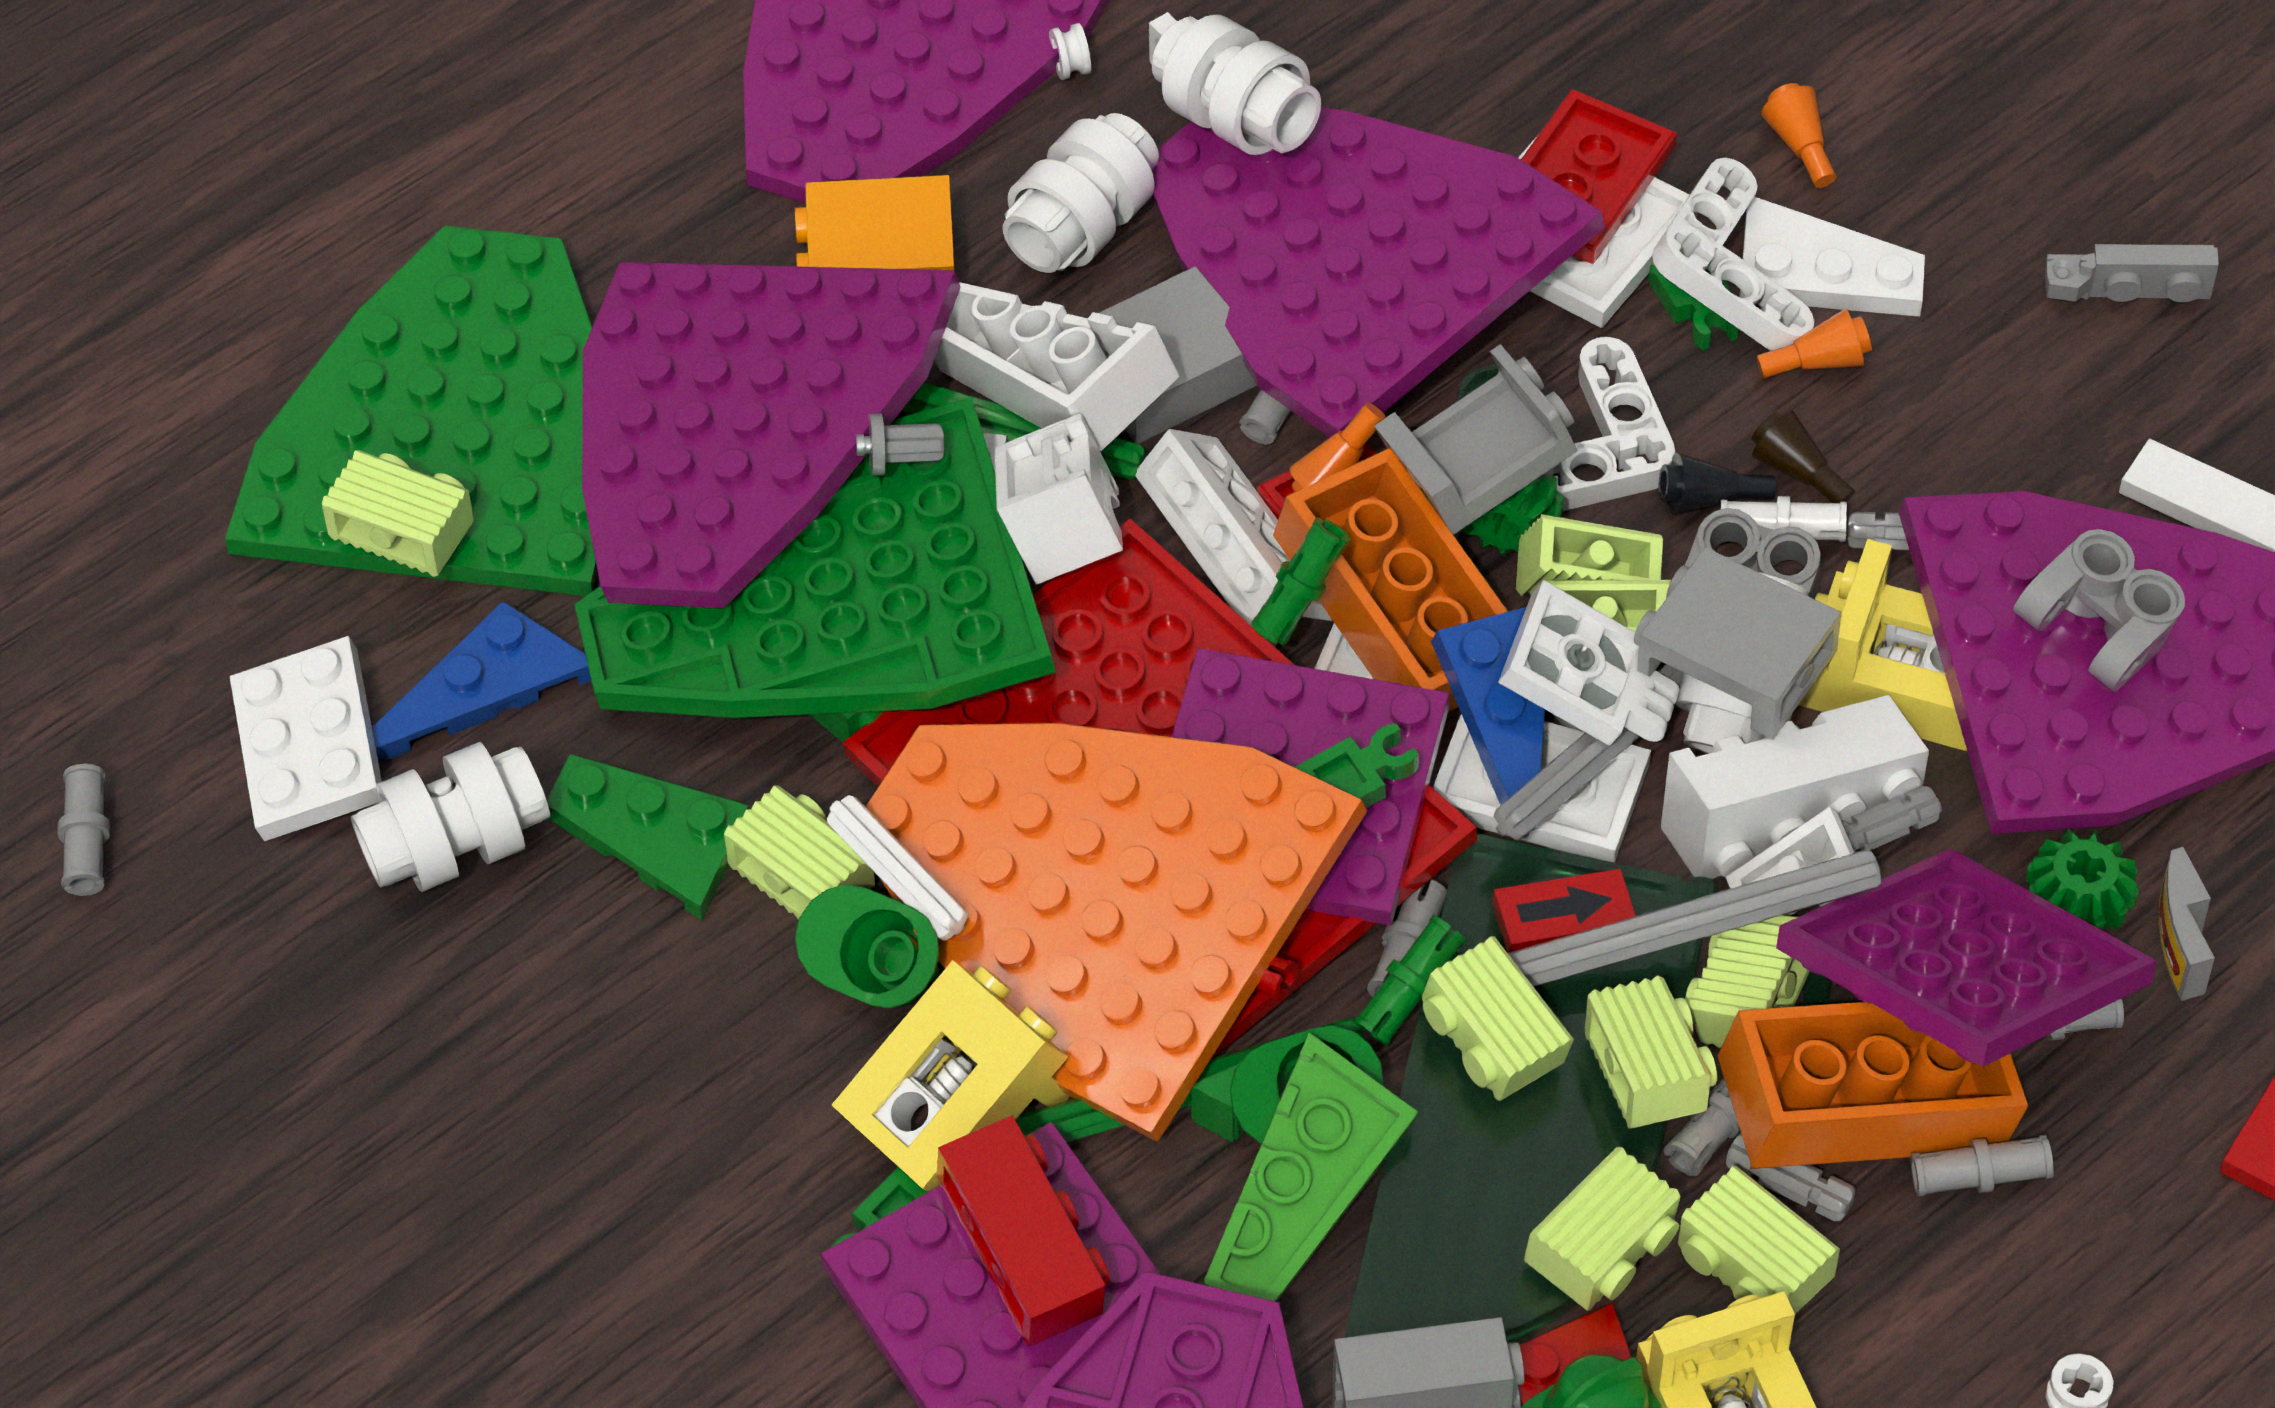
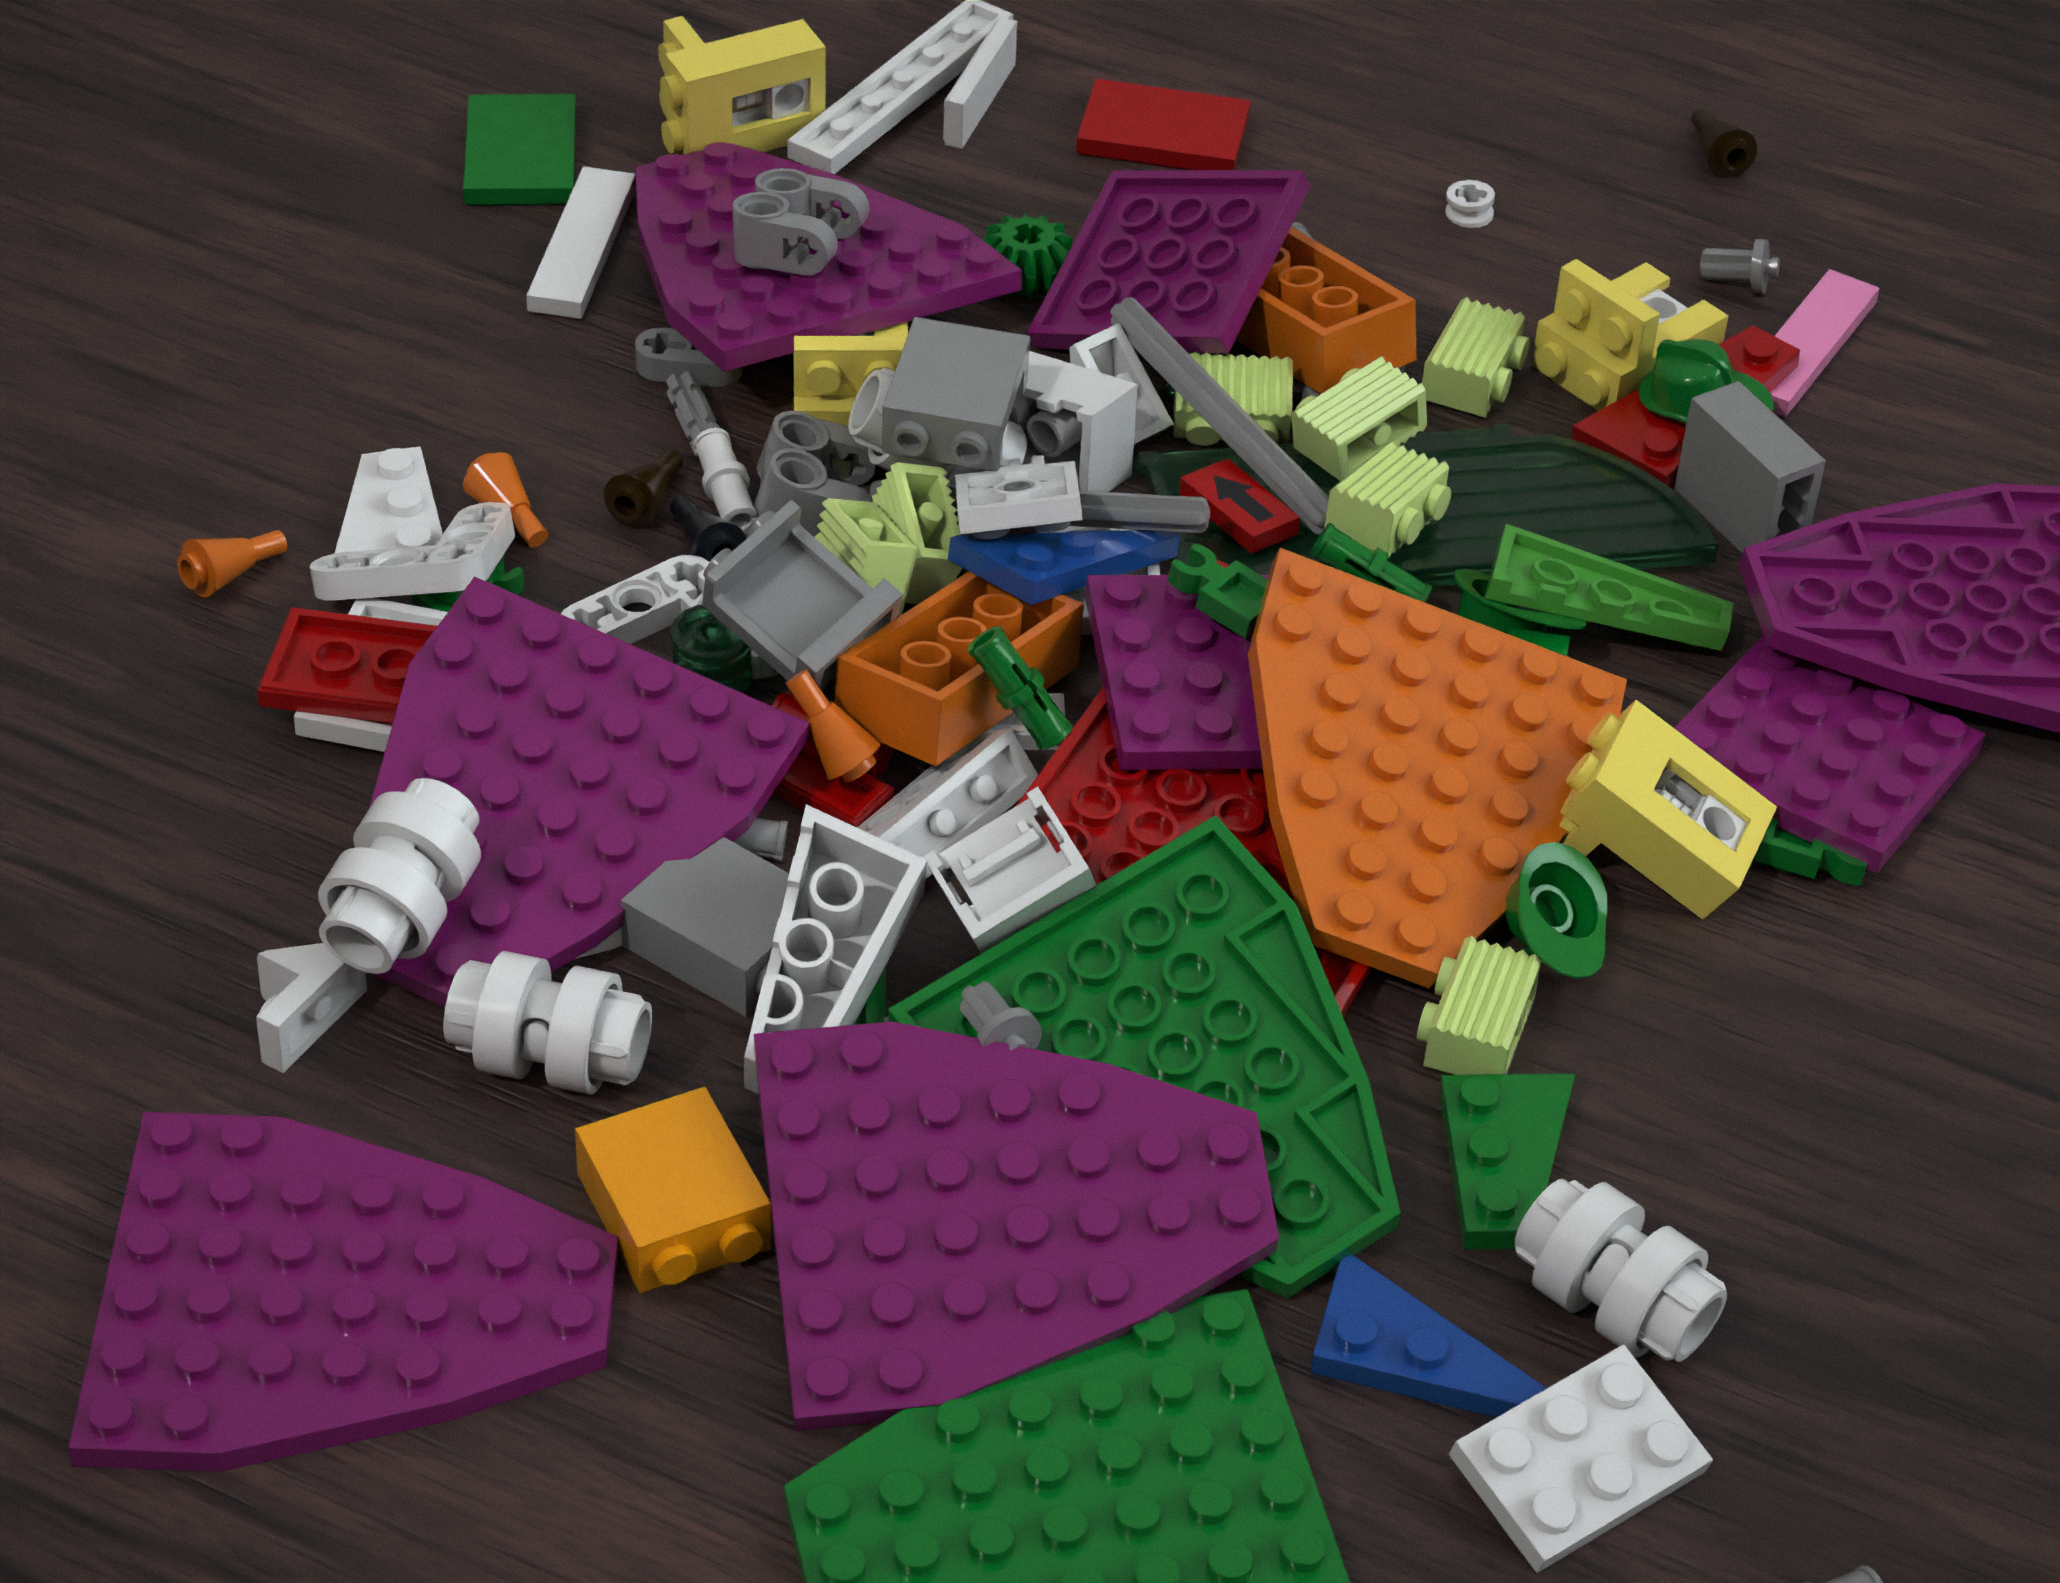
camera: 115 degrees left, 10 degrees down
(398, 511) = (1283, 1440): yellowish green brick -> none
(896, 866) = (1480, 898): white axle -> none
(1023, 1230) = (1791, 708): red brick -> none
(1072, 51) = (315, 1106): white bush -> none
(1604, 1229) = (1531, 417): yellowish green brick -> none
(2133, 272) = (336, 329): light grey hinge -> none
(2181, 923) = (1058, 195): light grey slope -> none

